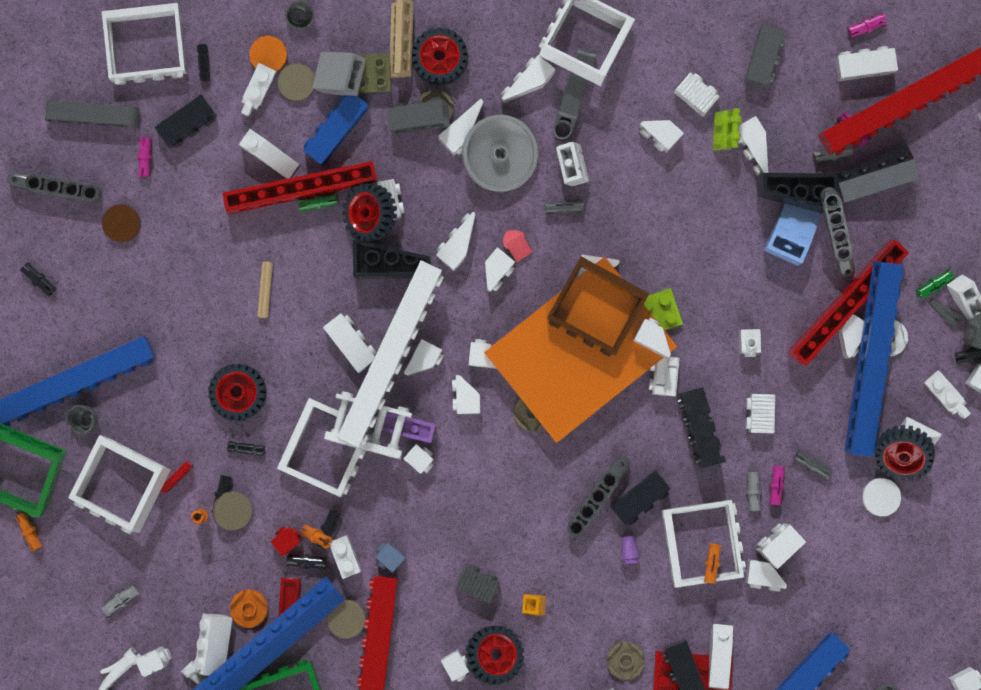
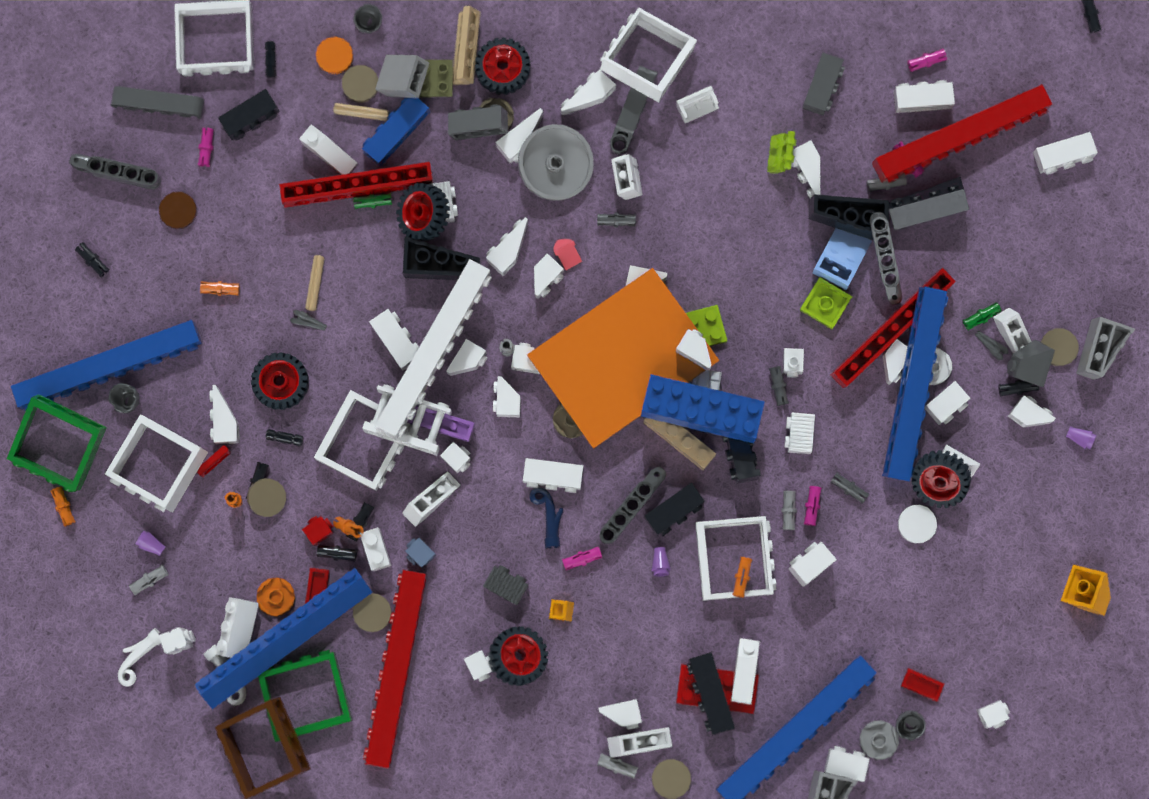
camera: 10 degrees right, 5 degrees down
(120, 564) = (149, 543): none -> medium lavender cone
(169, 301) = (219, 288): none -> orange pin
(184, 436) = (225, 425): none -> white slope
(257, 88) = (321, 87): white hinge -> none
(259, 328) = (305, 320): none -> dark grey piece
(299, 111) = (362, 112): none -> tan axle
(397, 501) = (430, 499): none -> white slope
(463, 341) = (508, 344): none -> light grey pin
(517, 471) = (552, 475): none -> white brick
(519, 515) = (552, 519): none -> dark blue plant
(551, 552) = (582, 558): none -> dark pink pin
(612, 279) = (655, 287): reddish brown window -> none
(620, 660) = (651, 677): dark tan tile -> none
(639, 85) = (697, 104): none -> white hinge
(641, 426) = (683, 442): none -> tan brick
(664, 133) = (720, 153): white slope -> none
(664, 398) = (702, 408): none -> blue brick
(697, 94) = (754, 116): white brick -> none
(736, 367) = (778, 385): none -> dark grey pin
(763, 574) = (793, 593): white slope -> none
(779, 280) = (825, 303): none -> lime plate
(894, 656) = (922, 684): none -> red tile
(905, 374) = (946, 403): none -> white brick
(947, 394) = (988, 426): white hinge -> none

